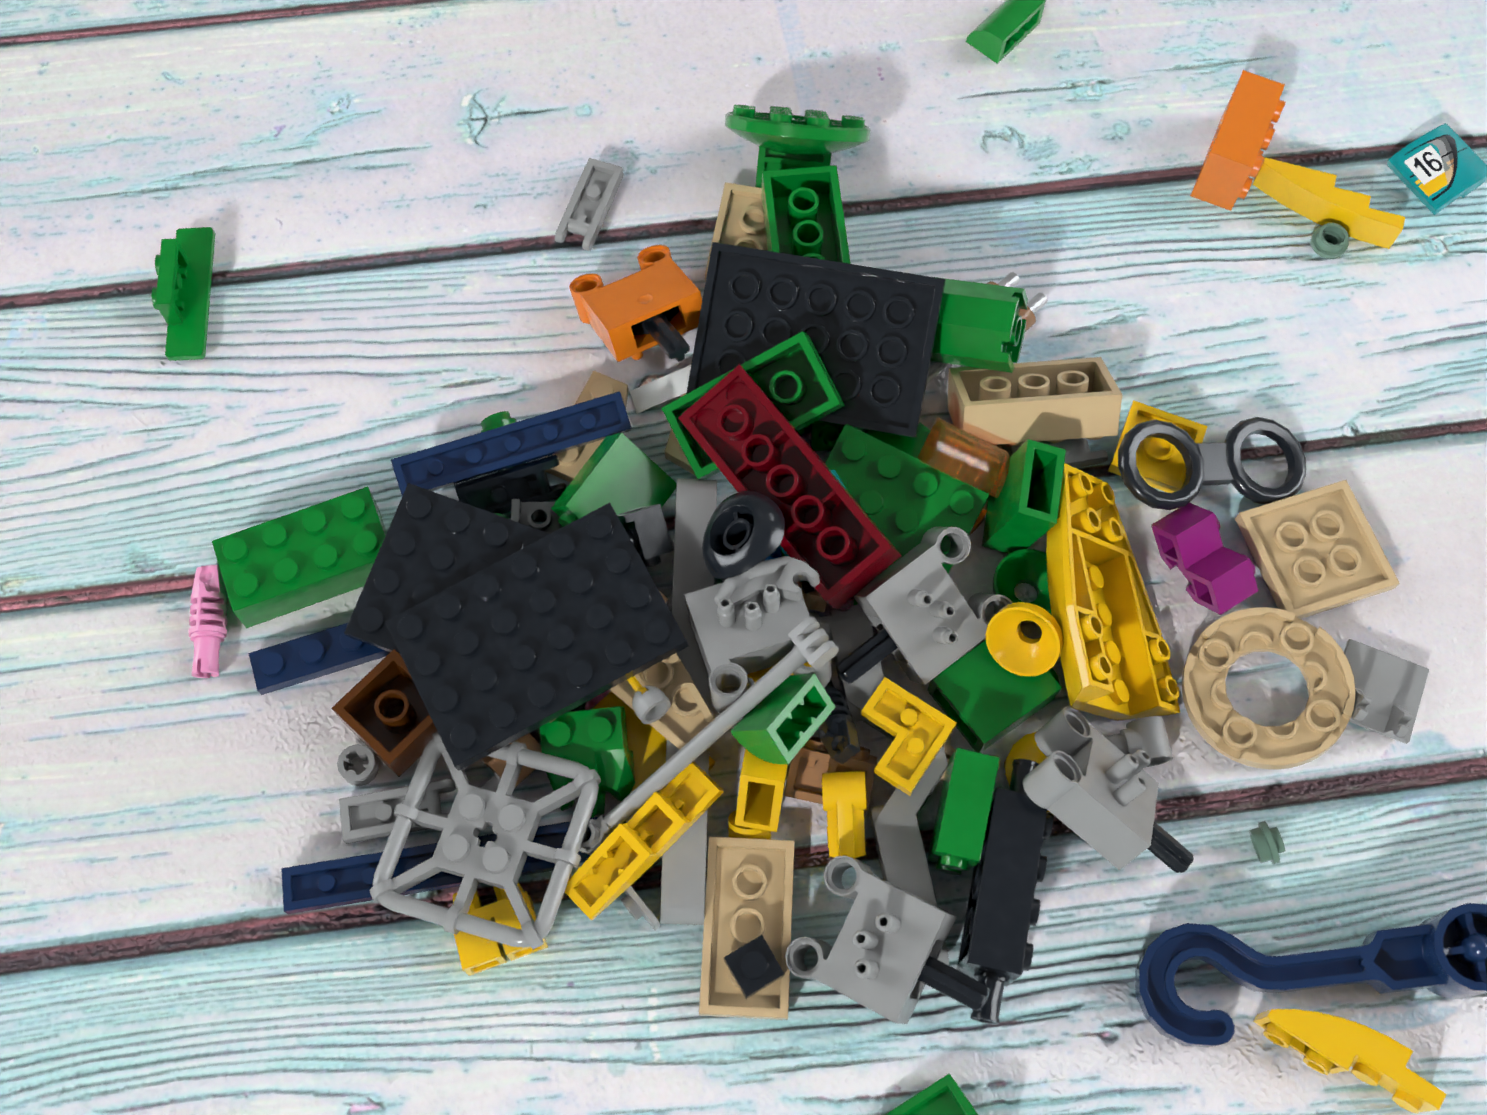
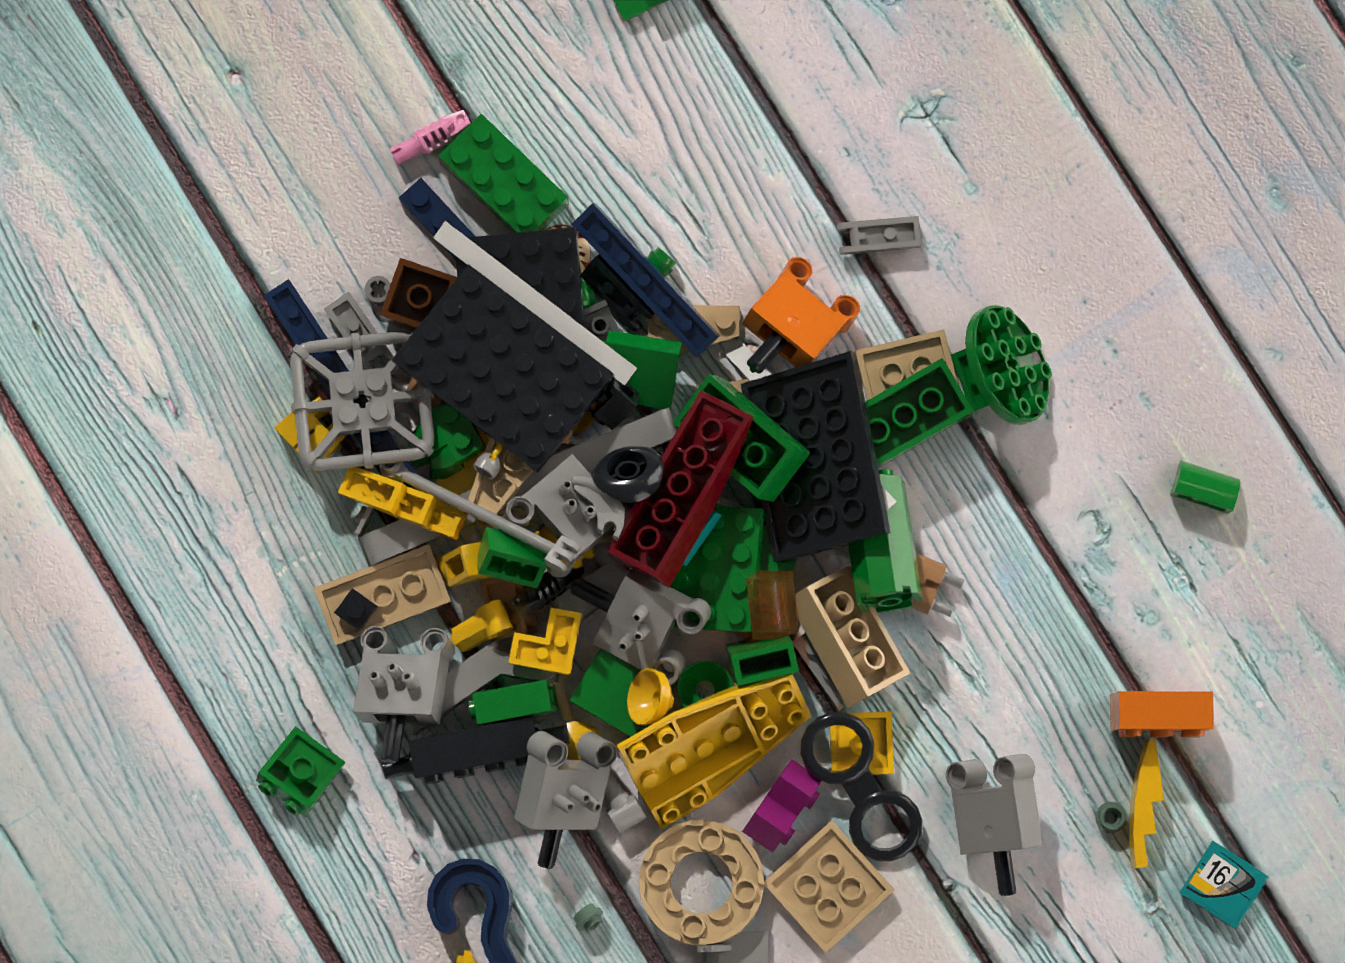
camera: 65 degrees right, 15 degrees up
(372, 617) = (533, 300): none -> white sticker
(1303, 332) = (996, 816): none -> light grey piece

